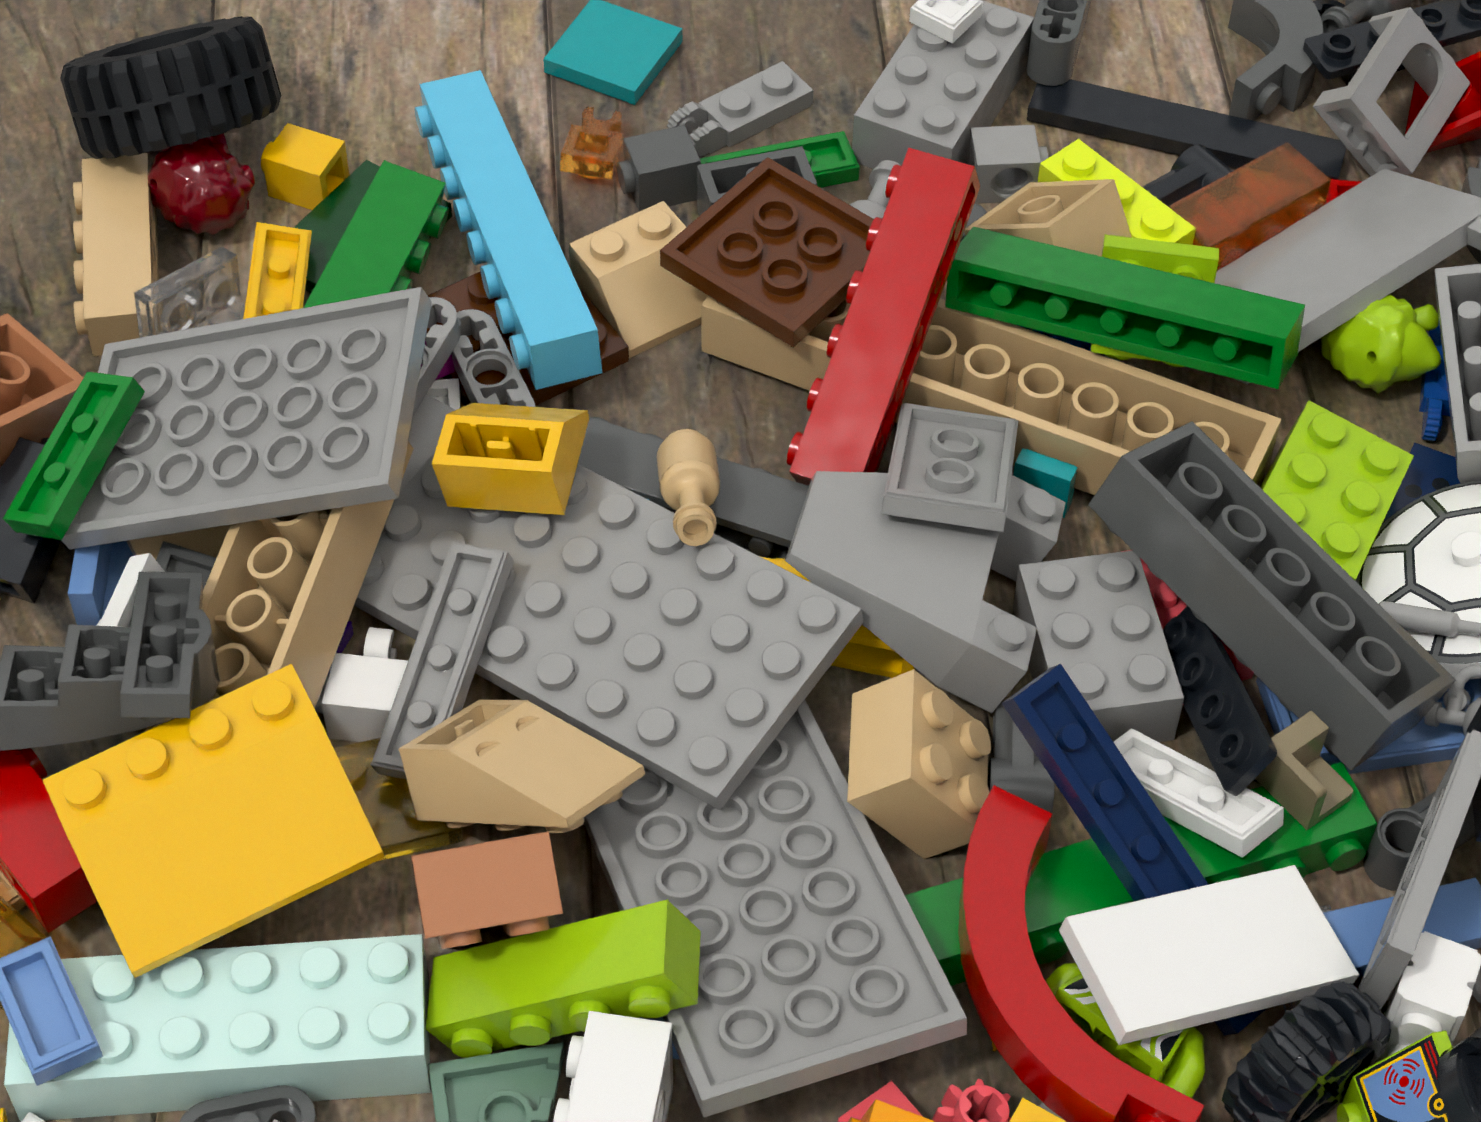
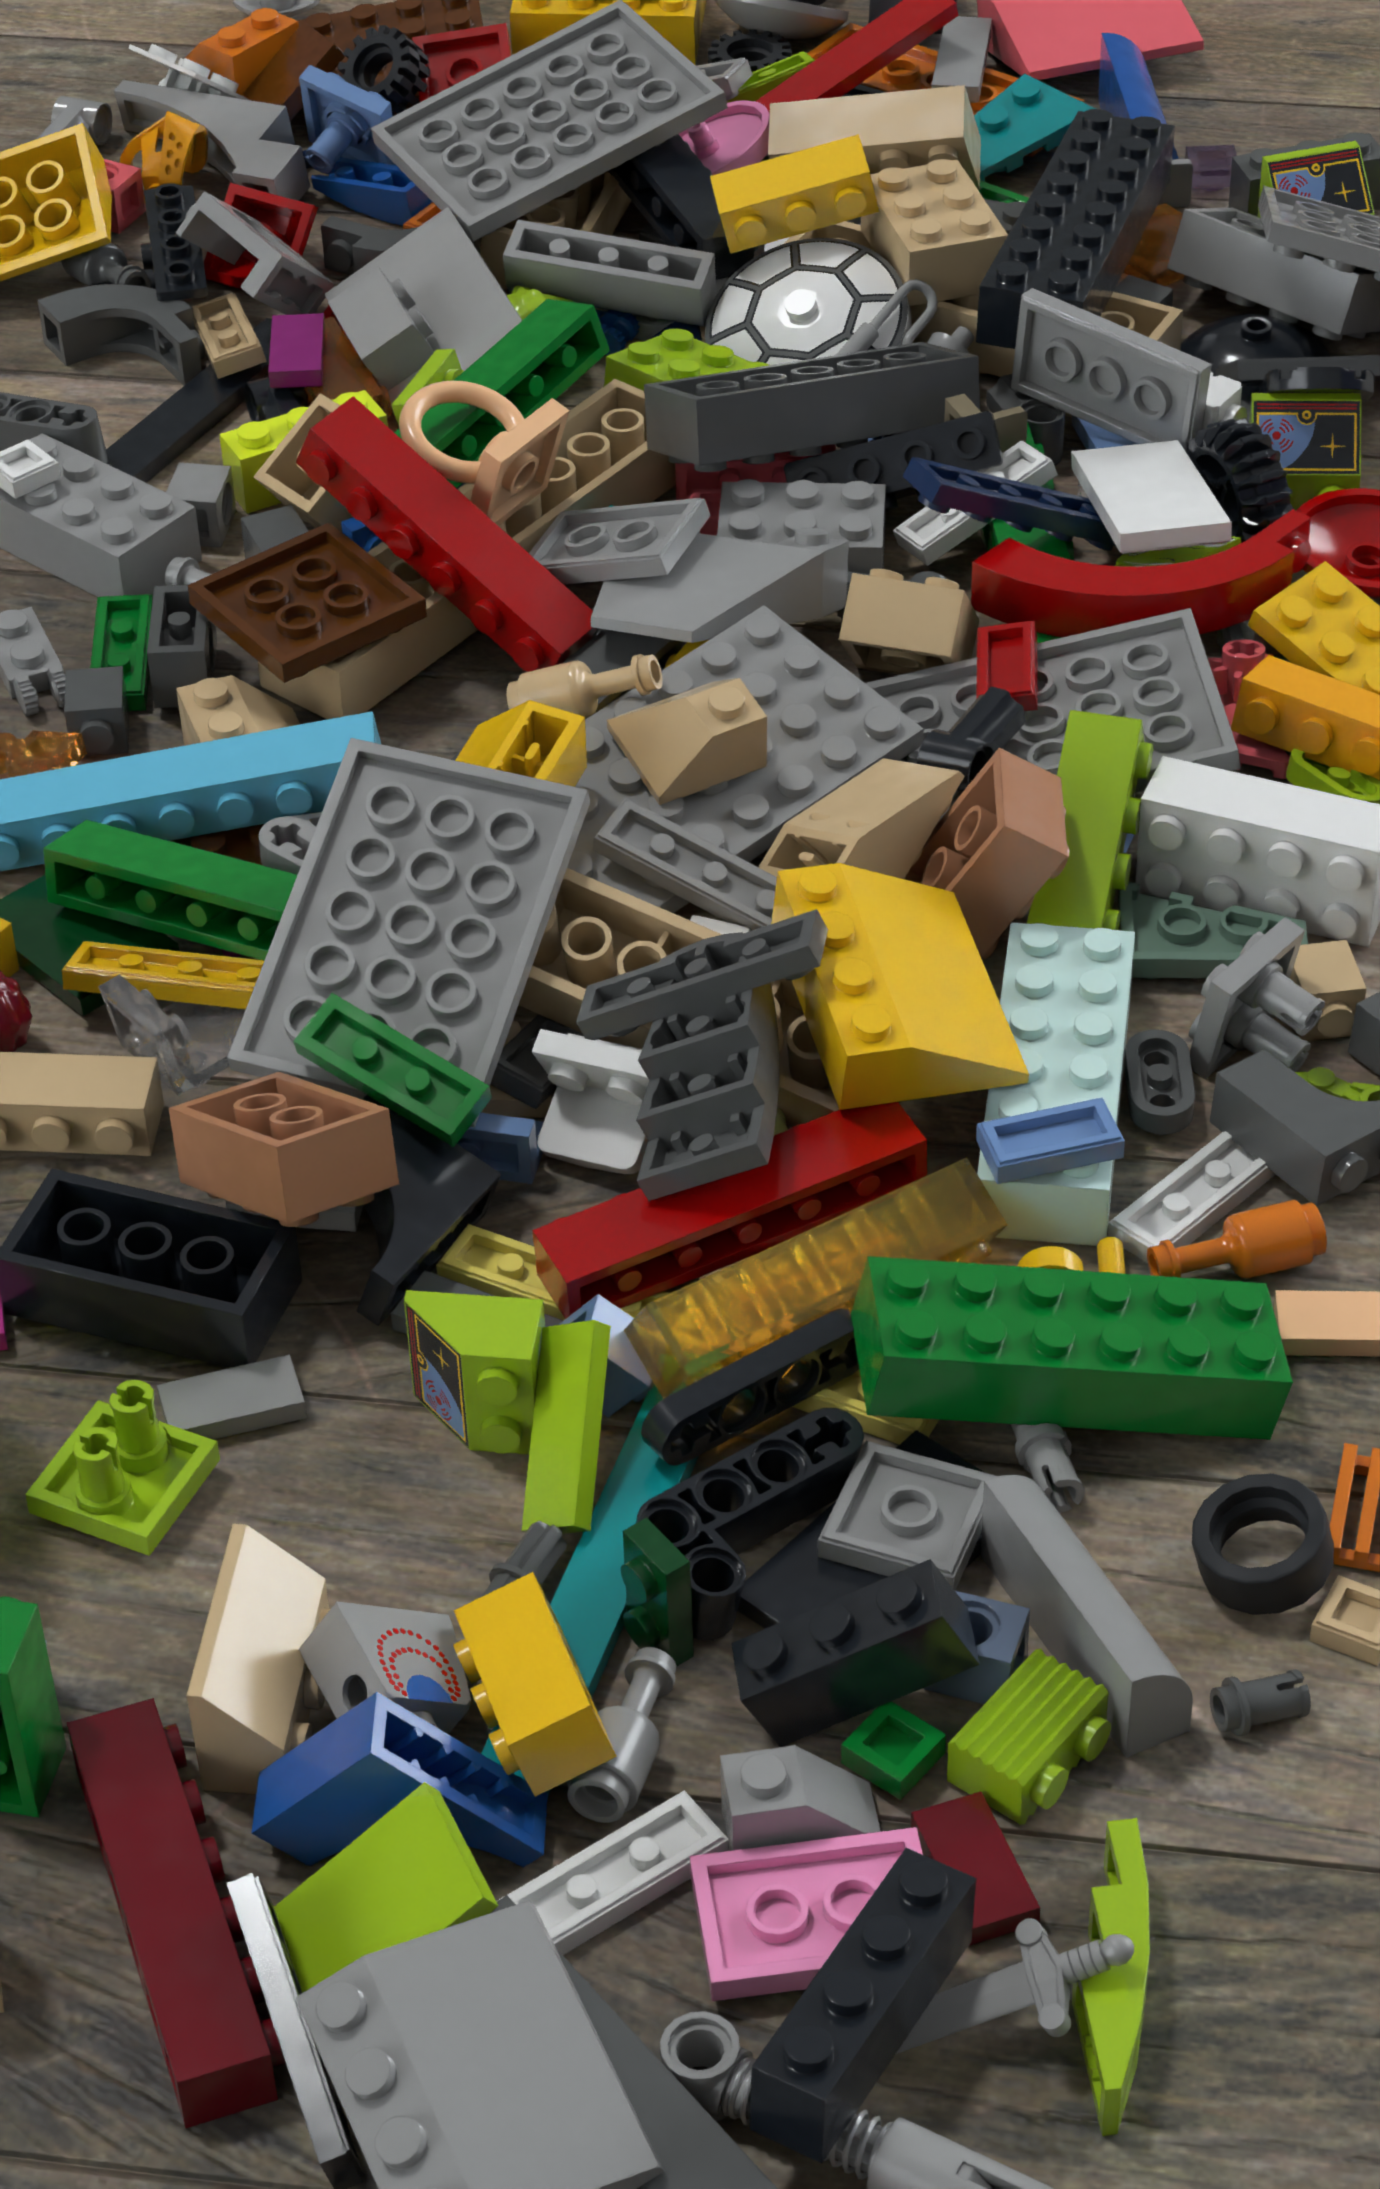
camera: 75 degrees left, 10 degrees down
(624, 590) = (694, 739): none -> tan slope
(670, 837) = (975, 736): none -> black piece
(838, 858) = (1009, 661): none -> red tile
(1007, 341) = (514, 462): none -> light nougat tile
(1243, 161) = (297, 350): none -> magenta tile
(1274, 120) = (227, 335): none -> tan tile
(1300, 215) = (382, 327): none -> light grey brick

